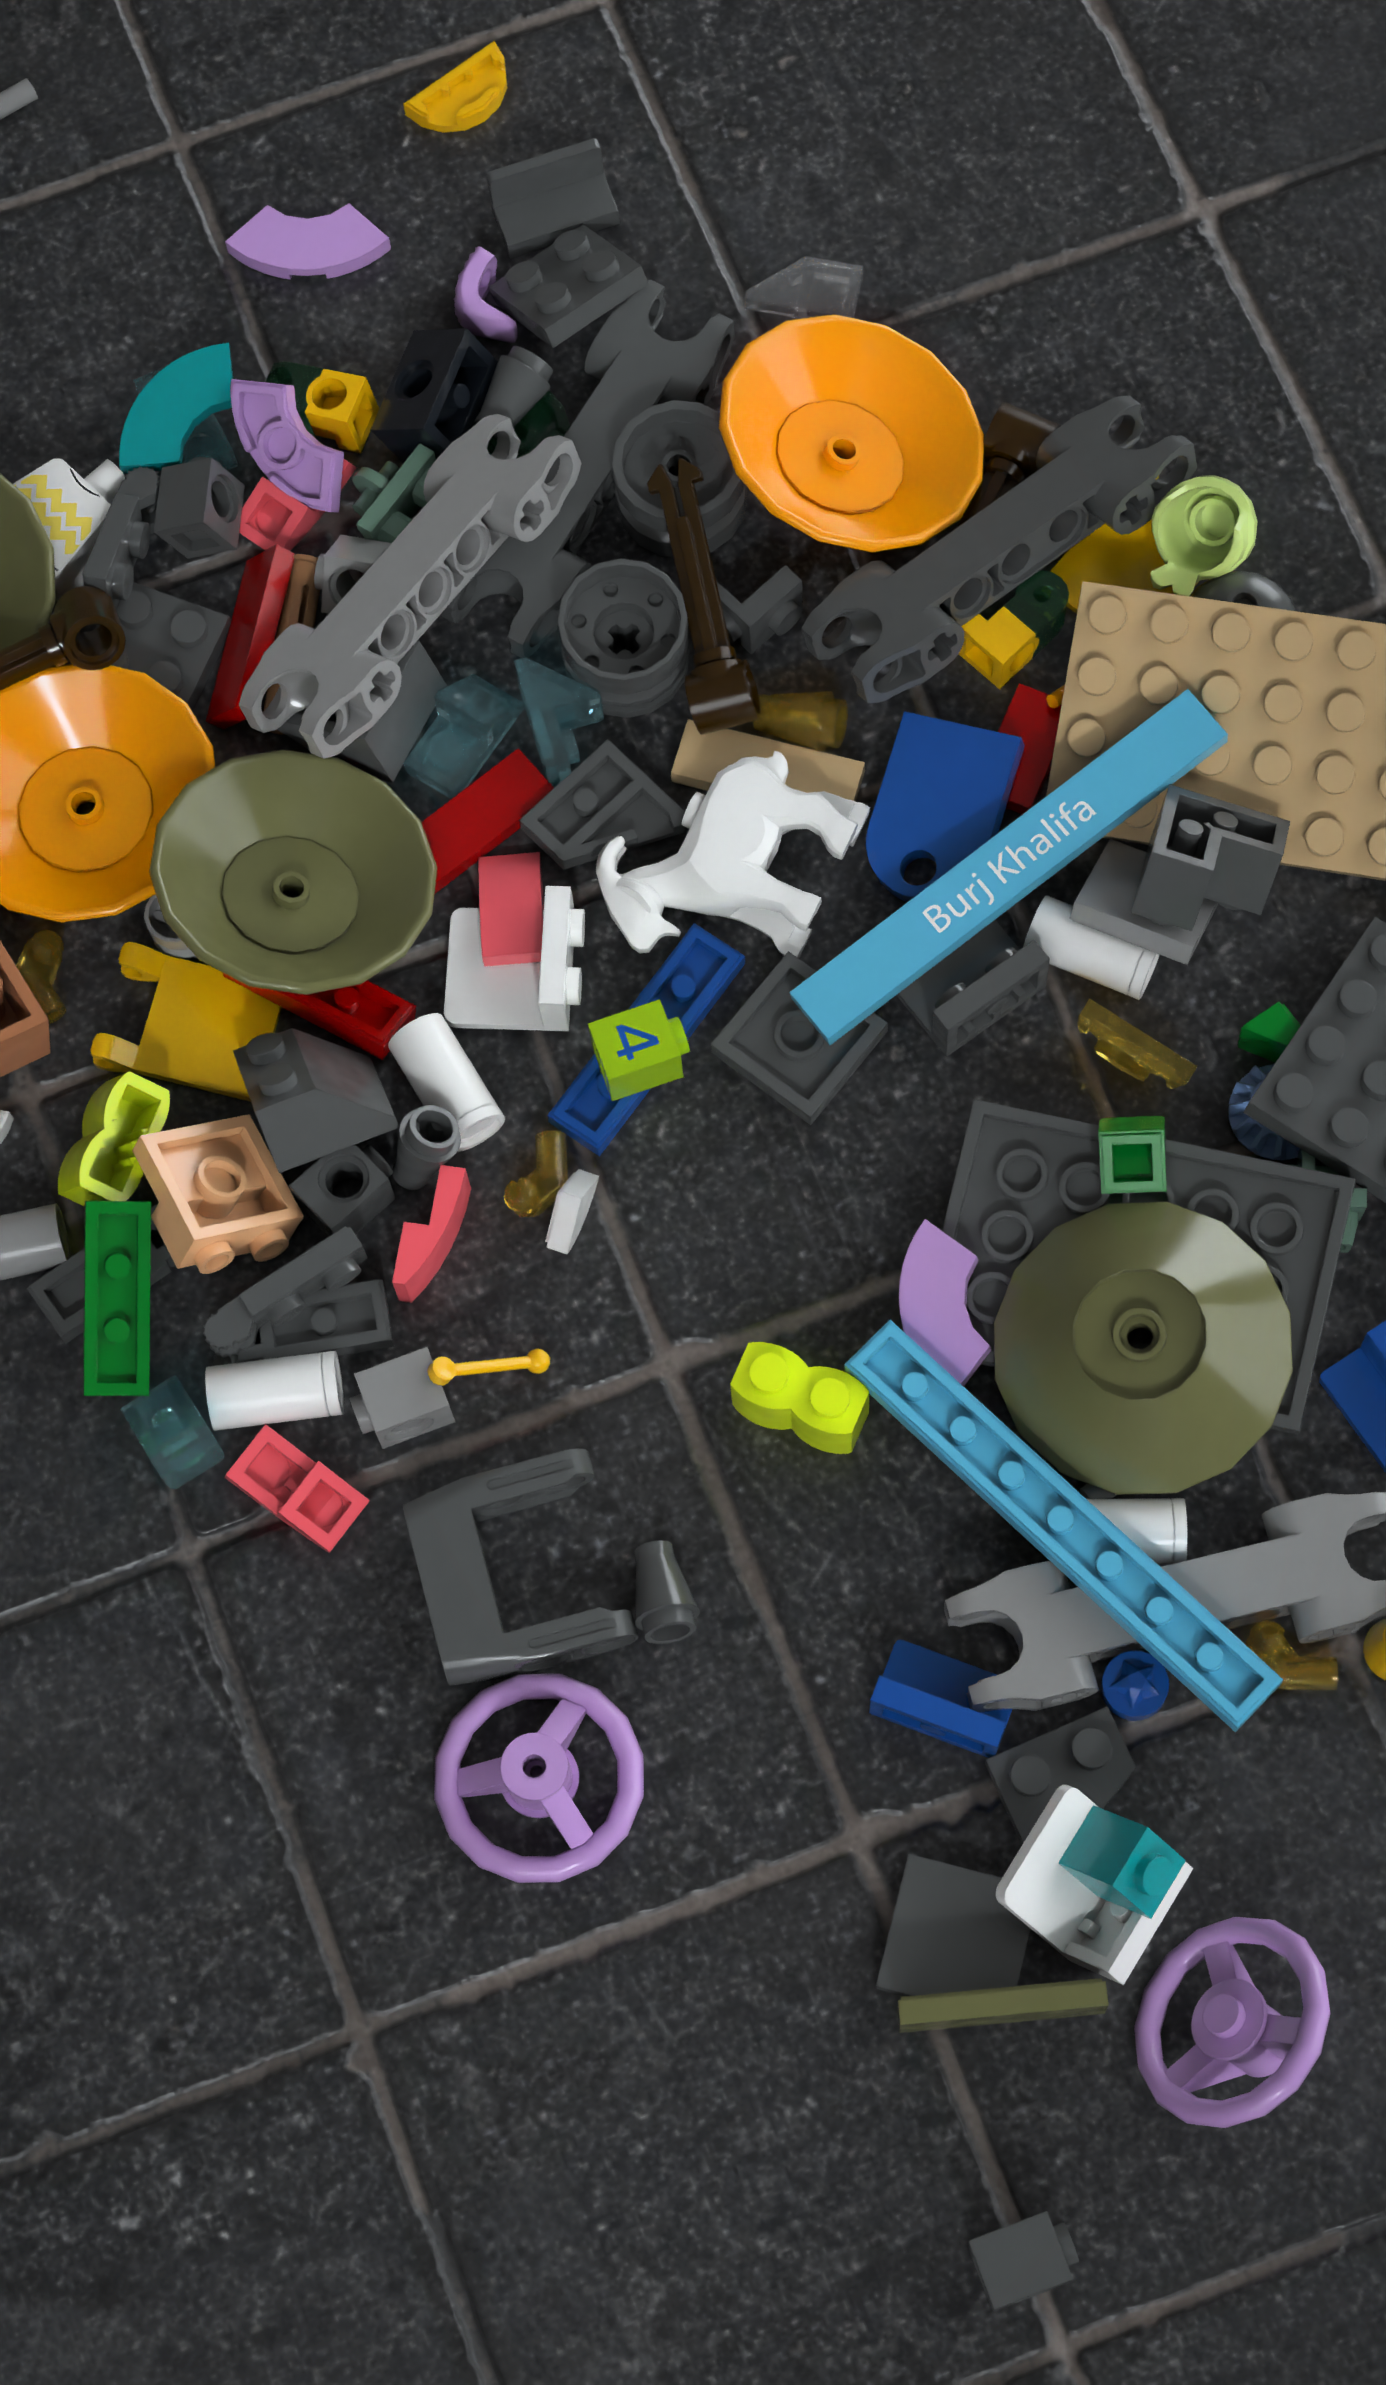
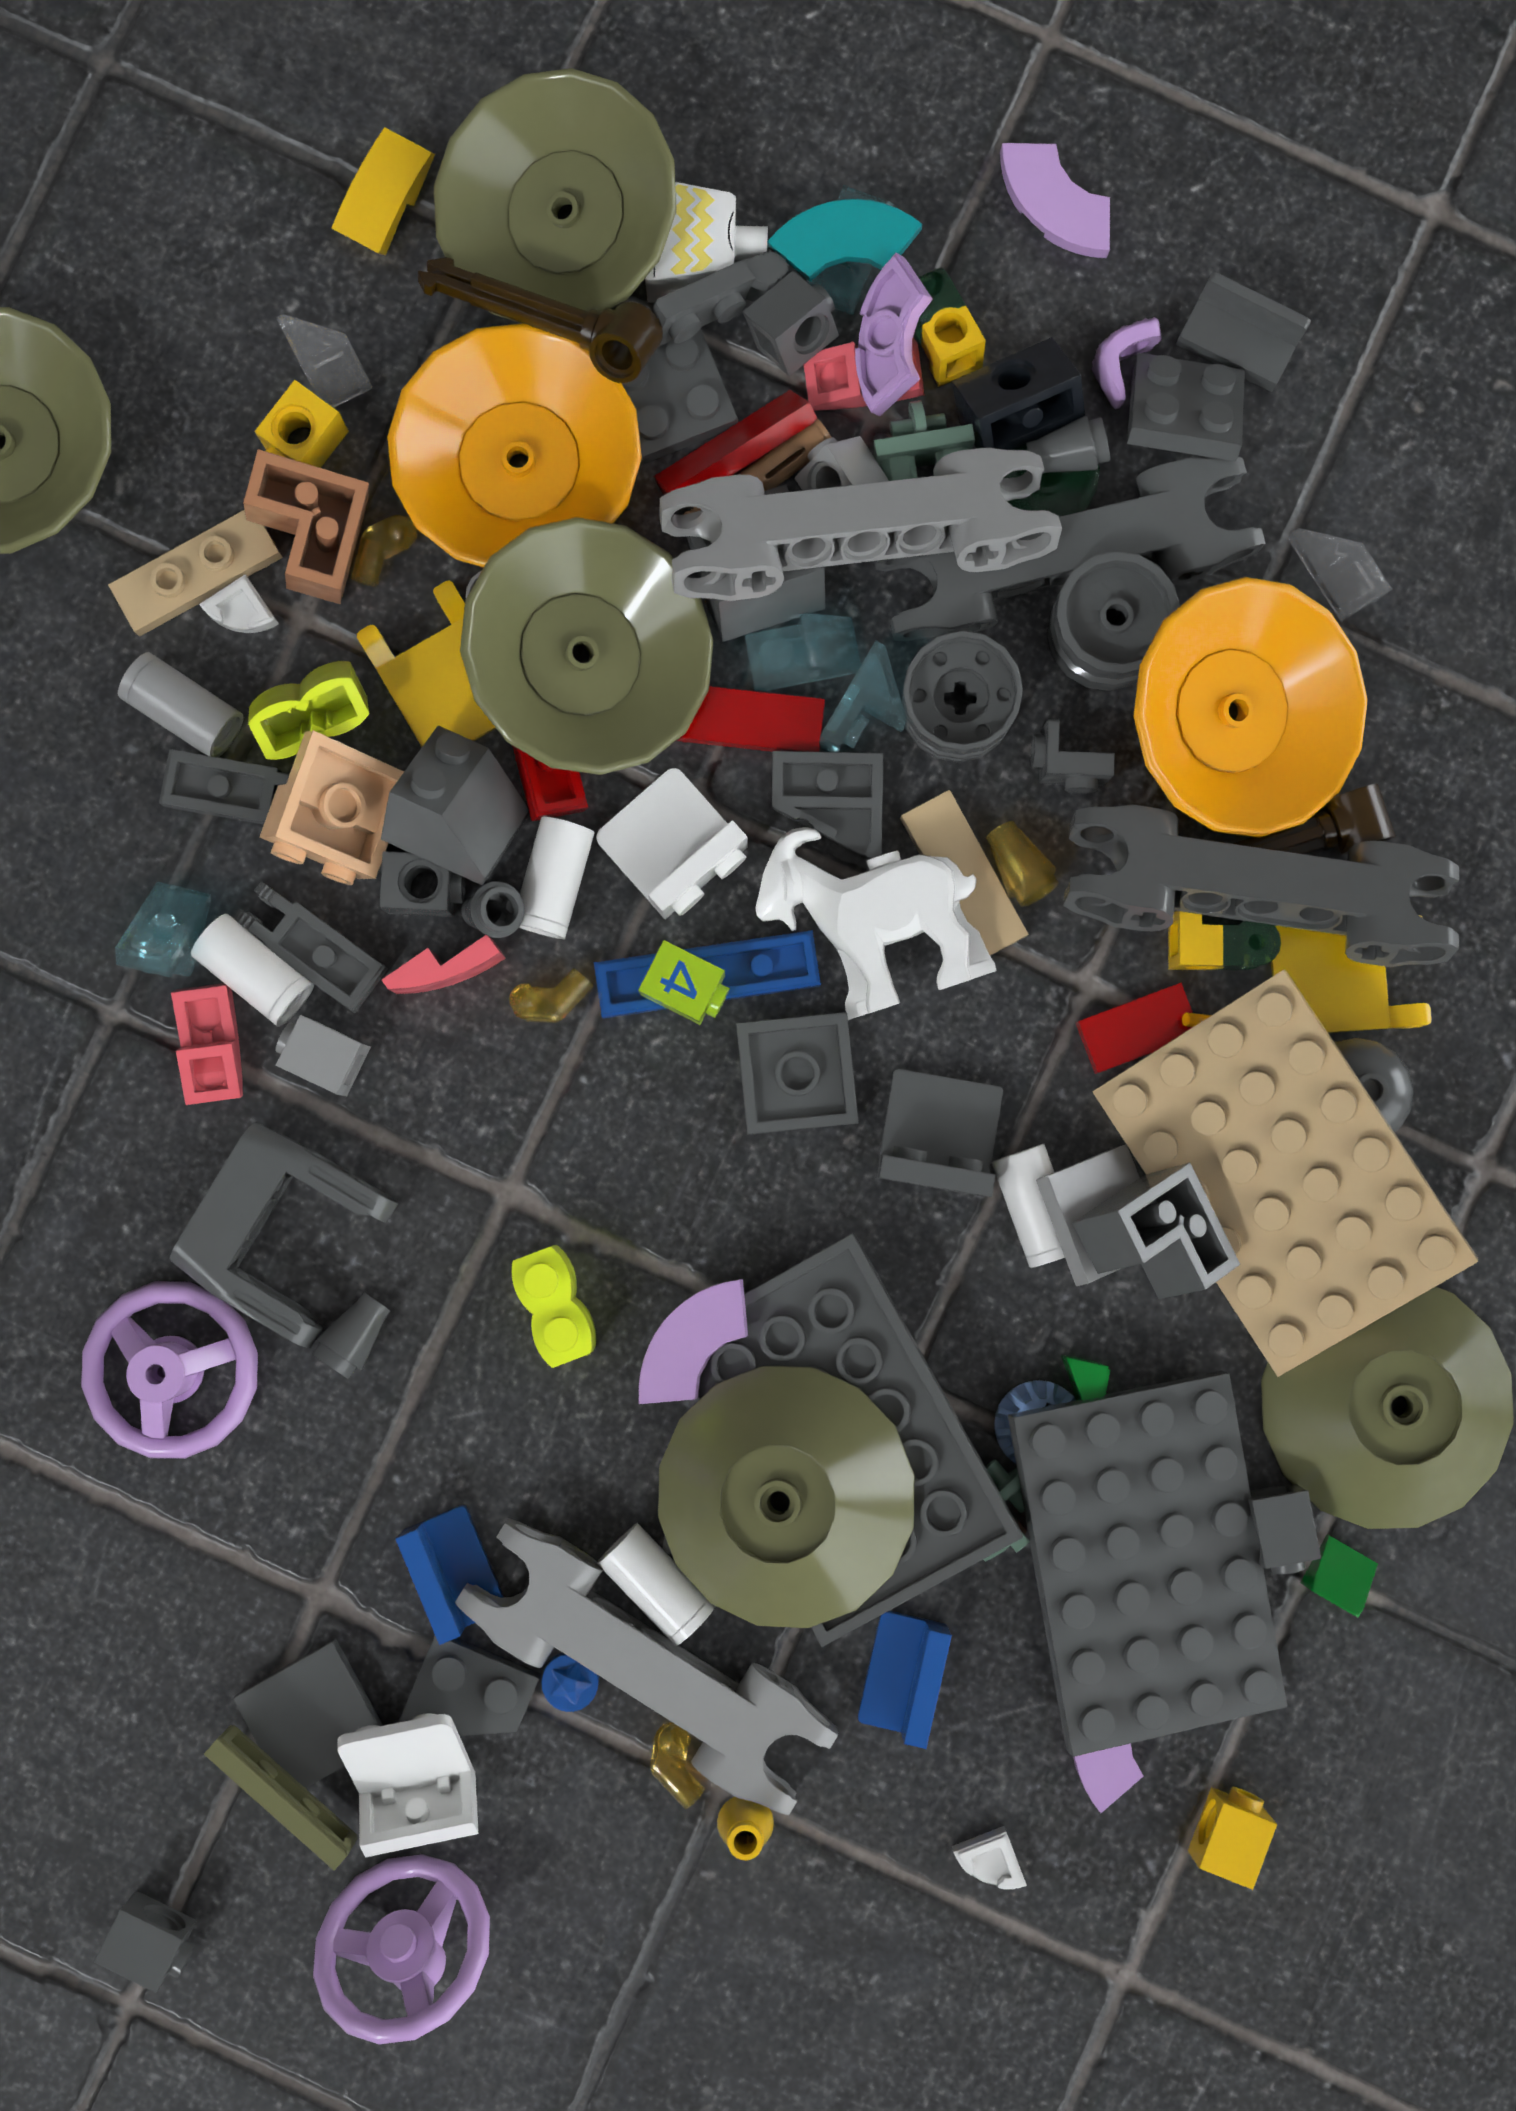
camera: 35 degrees right, 15 degrees up
(116, 1298) = (208, 815): green plate -> none
(283, 1292) = (306, 920): dark grey hinge -> none
(443, 1369) = (354, 1069): yellow hinge -> none
(462, 95) = (1266, 192): yellow tile -> none
(511, 908) = (711, 801): coral slope -> none
(570, 1210) = (545, 1038): white tile -> none
(721, 686) = (983, 798): dark brown piece -> none
(939, 797) = (1046, 1011): blue tile -> none
(1008, 866) = (1037, 1108): medium azure tile -> none
(1064, 1526) = (617, 1556): medium azure tile -> none
(1122, 1861) = (435, 1794): teal brick -> none
(1131, 1048) = (989, 1300): clear yellow tile -> none
(1132, 1154) = (907, 1375): green slope -> none
(1201, 532) = (1399, 1011): yellowish green hat -> none

